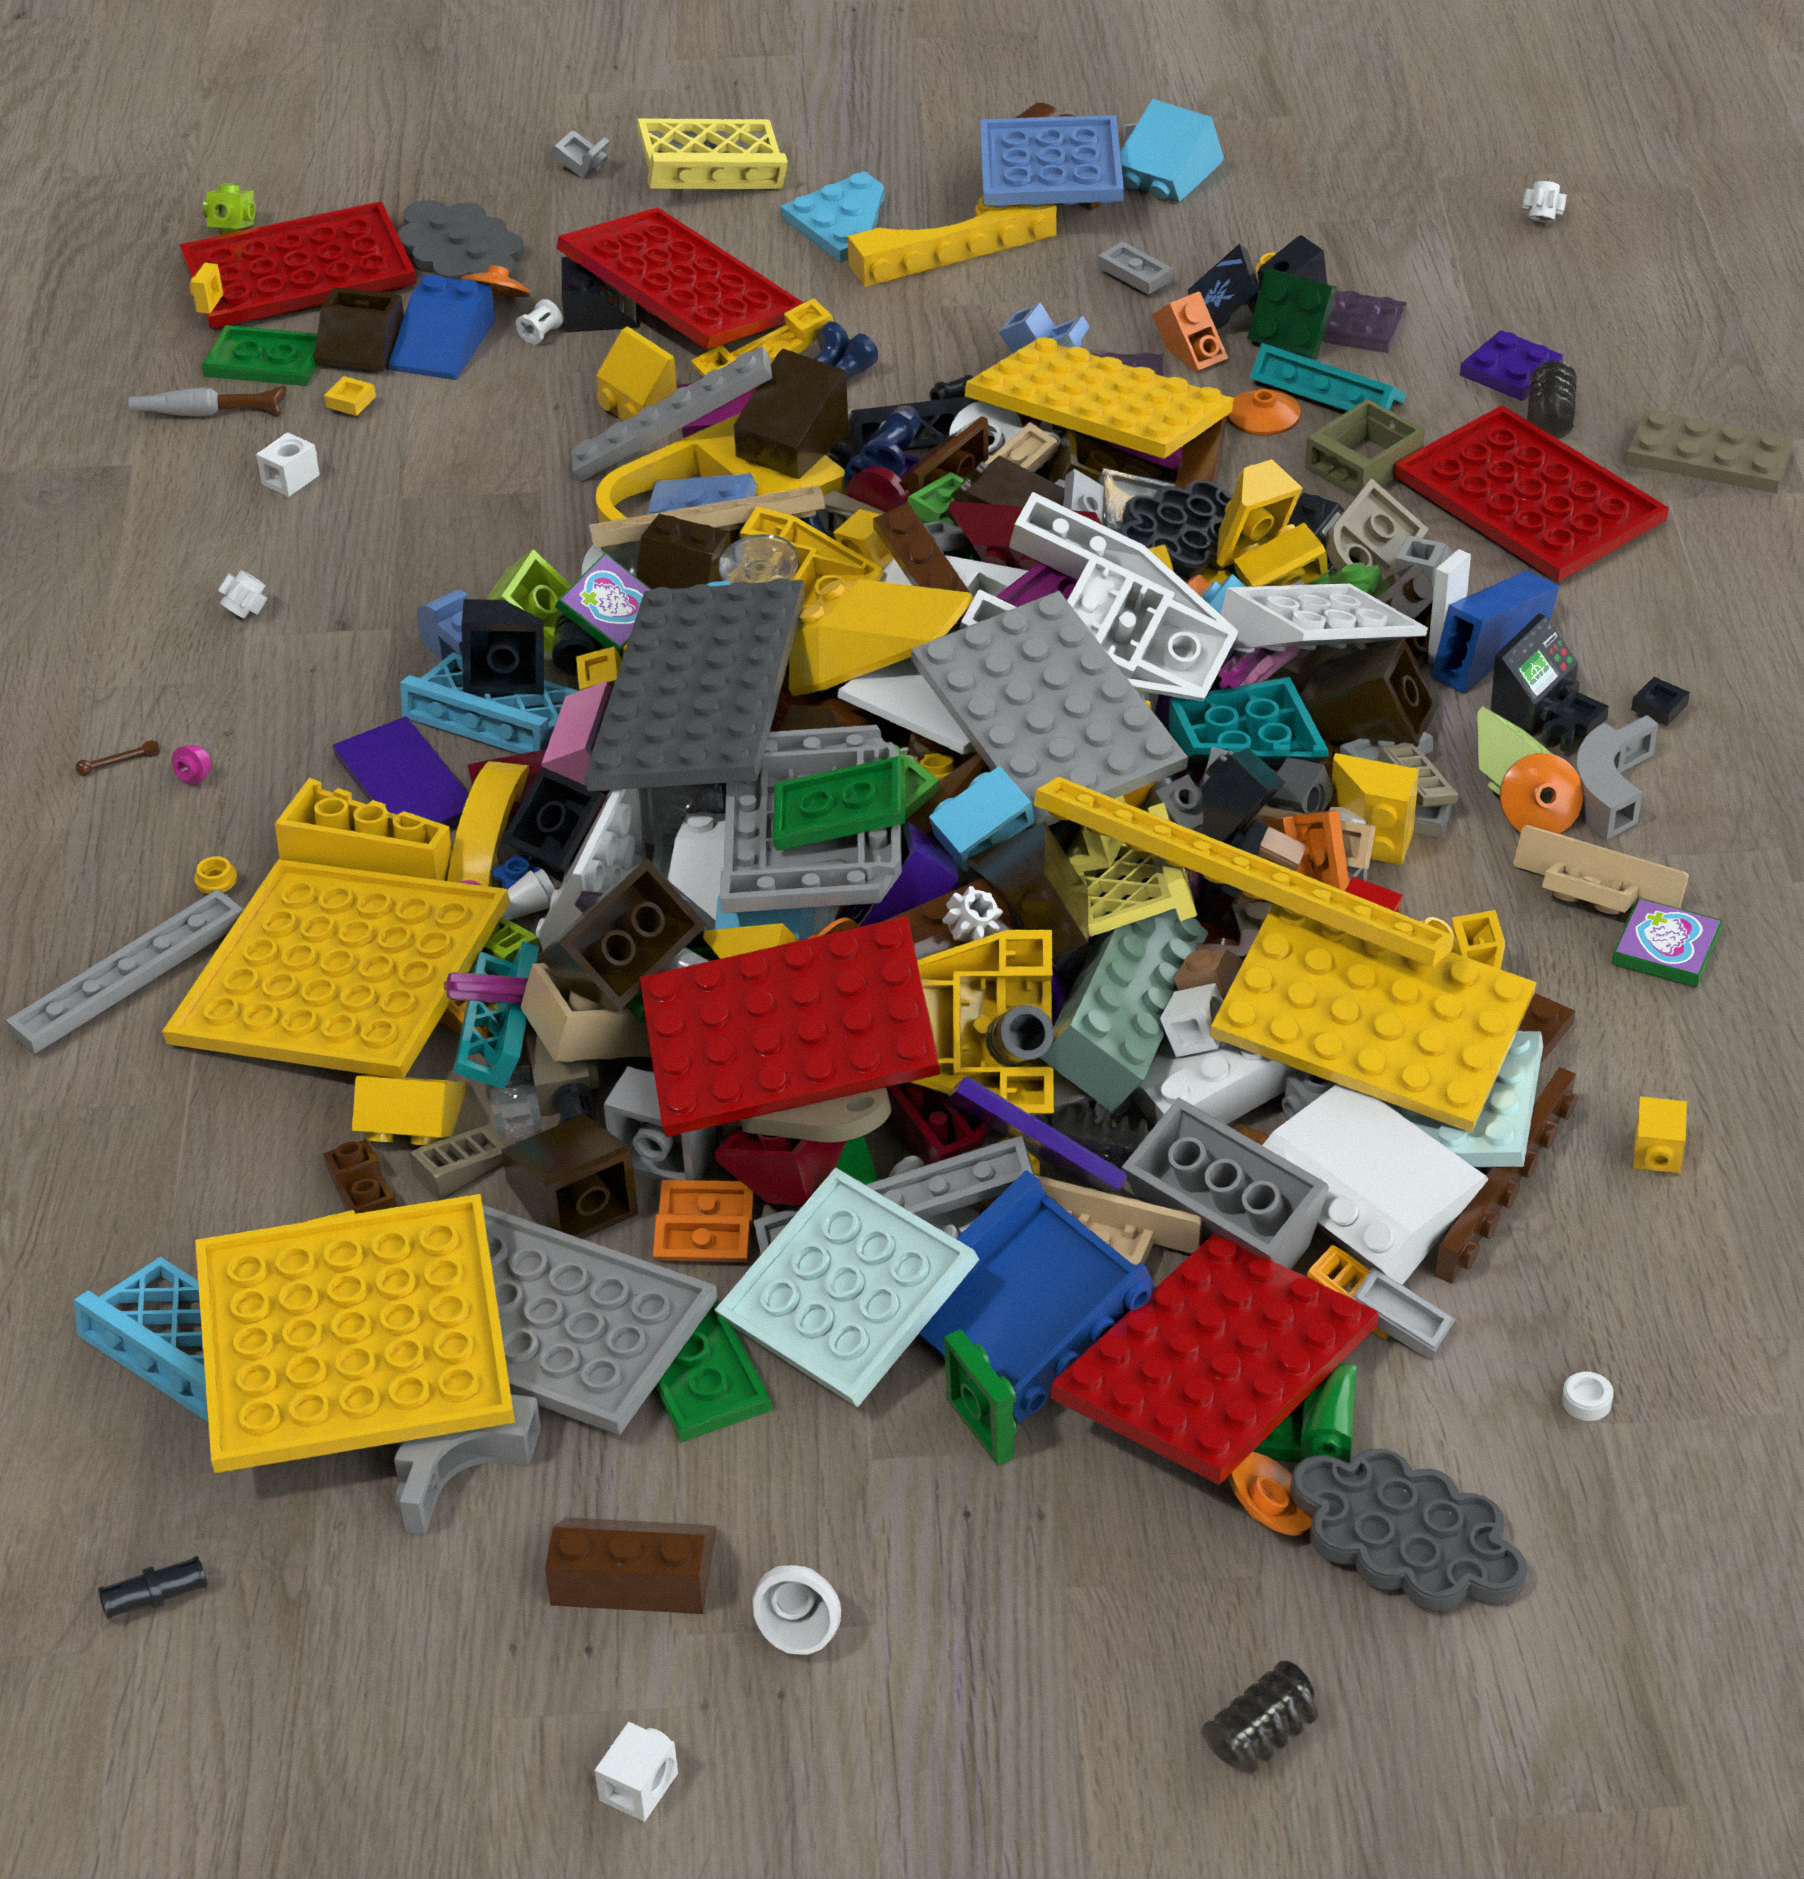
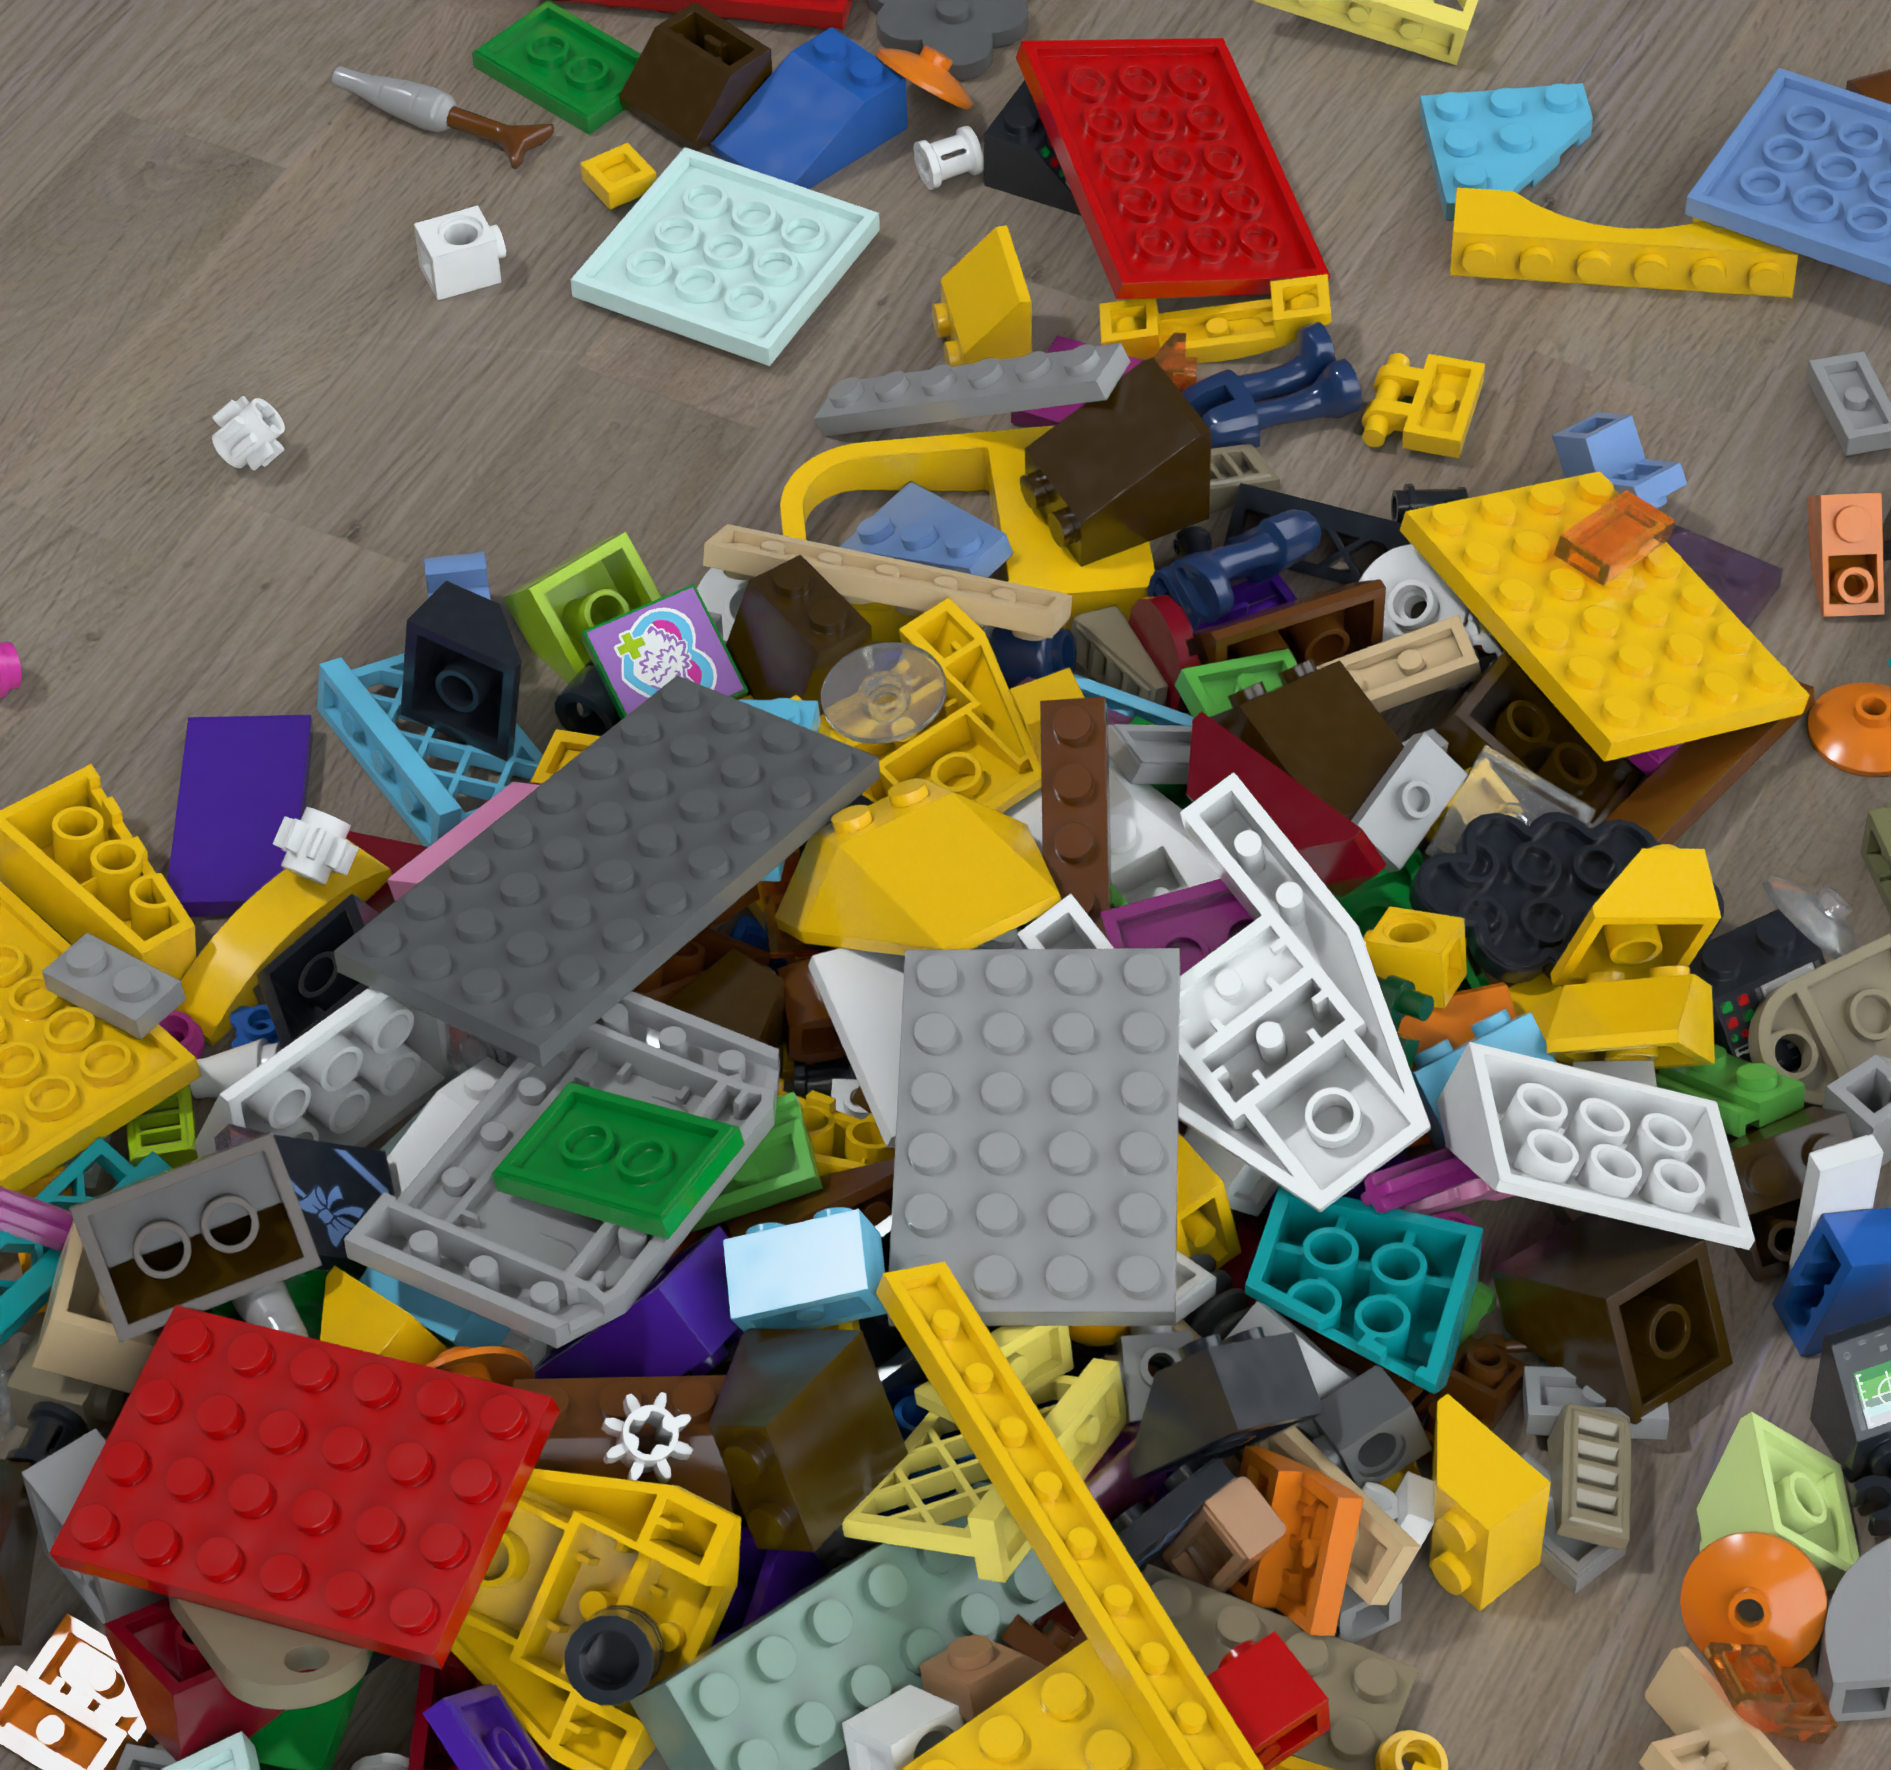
camera: 30 degrees right, 5 degrees up
(424, 875) = (114, 985): none -> light grey plate
(449, 412) = (726, 256): none -> light aqua plate
(491, 759) = (315, 845): none -> white gear
(918, 346) = (1441, 407): none -> yellow plate
(1082, 357) = (1614, 537): none -> clear orange tile
(1324, 488) = (1816, 914): none -> clear dish
(1579, 822) = (1771, 1696): none -> clear orange slope

